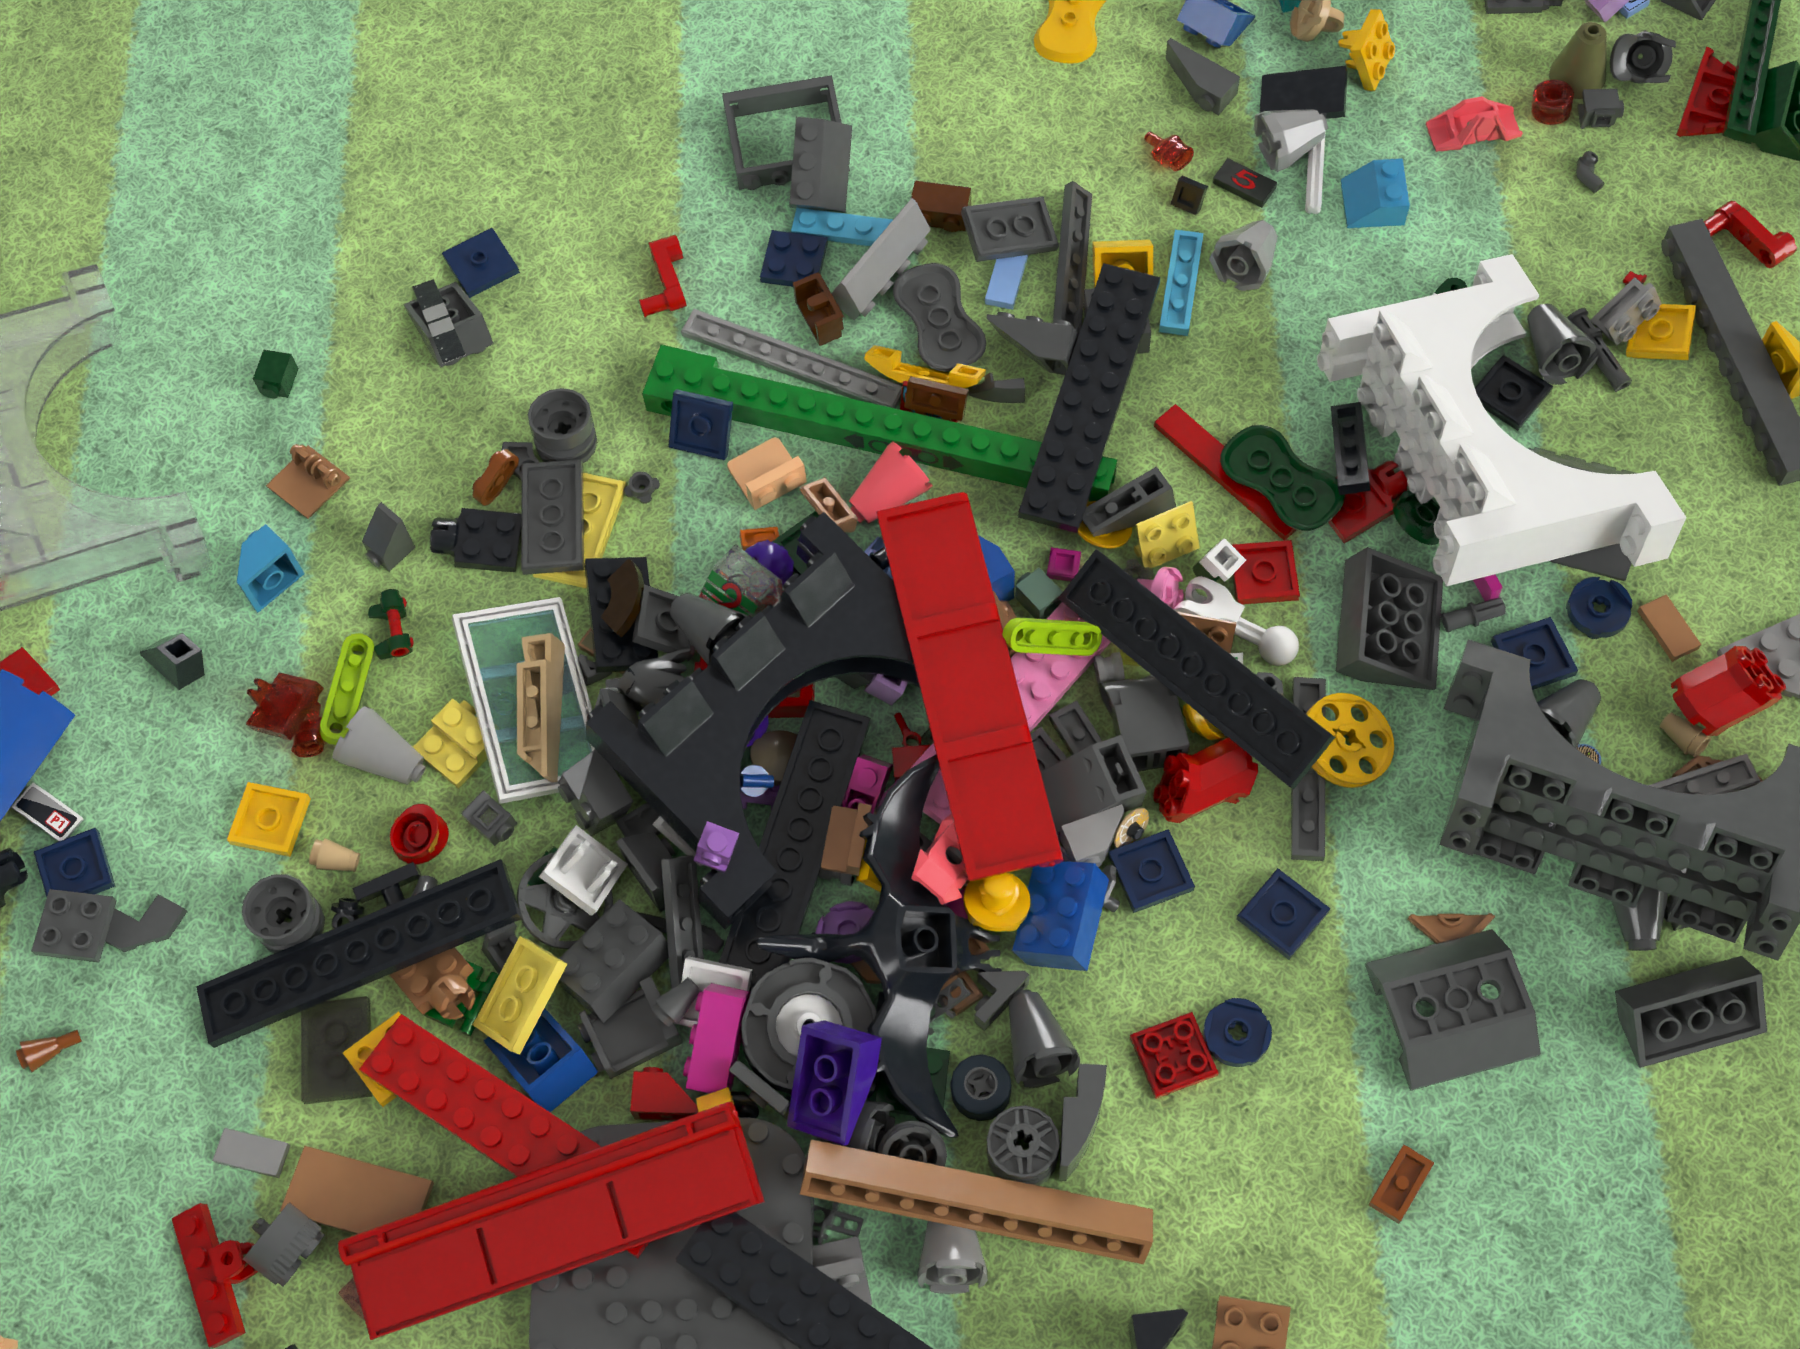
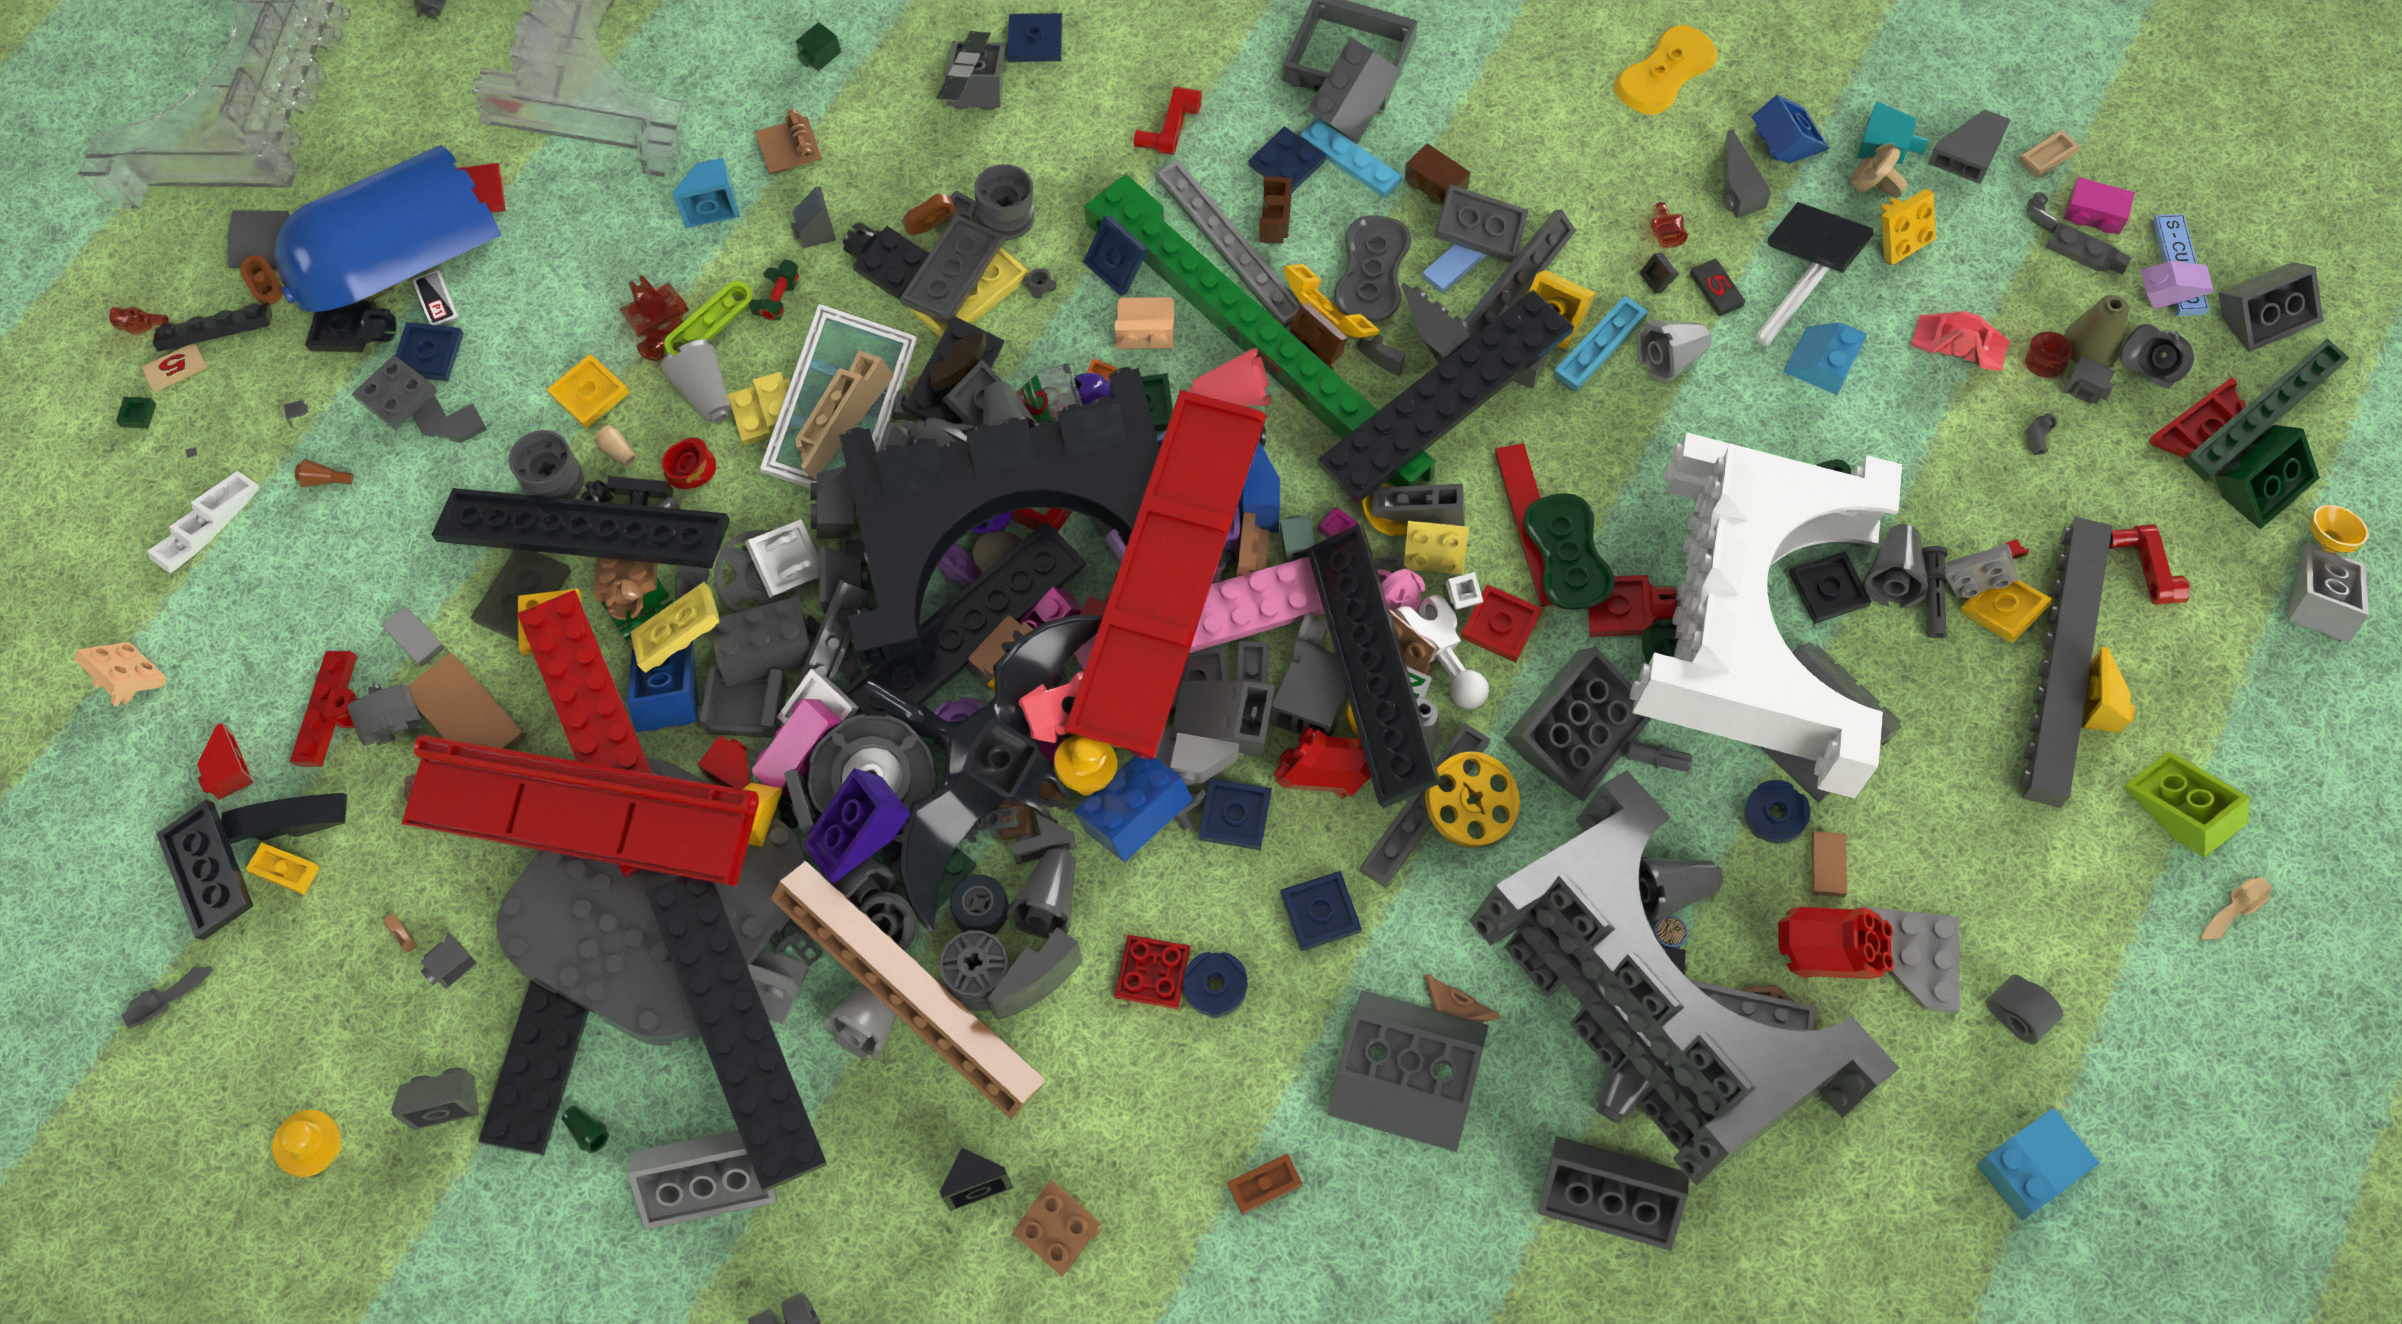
camera: 30 degrees right, 0 degrees up
(176, 659) = (599, 232): black slope -> none
(489, 818) = (747, 480): dark grey window -> none
(676, 1002) = (782, 699): dark grey cone -> none
(716, 847) = (877, 588): medium lavender brick -> none
(755, 780) = (963, 561): blue plate -> none
(826, 499) = (1173, 372): medium nougat slope -> none
(881, 261) = (1352, 195): light grey slope -> none
(1052, 636) = (1269, 574): lime plate -> none
(1131, 827) = (1241, 768): piece -> none
(1288, 135) = (1781, 263): light grey cone -> none
(1350, 448) = (1645, 558): black plate -> none
(1488, 587) = (1689, 740): dark pink tile -> none
(1544, 647) = (1693, 820): dark blue plate -> none
(1685, 735) = (1775, 963): tan cone -> none

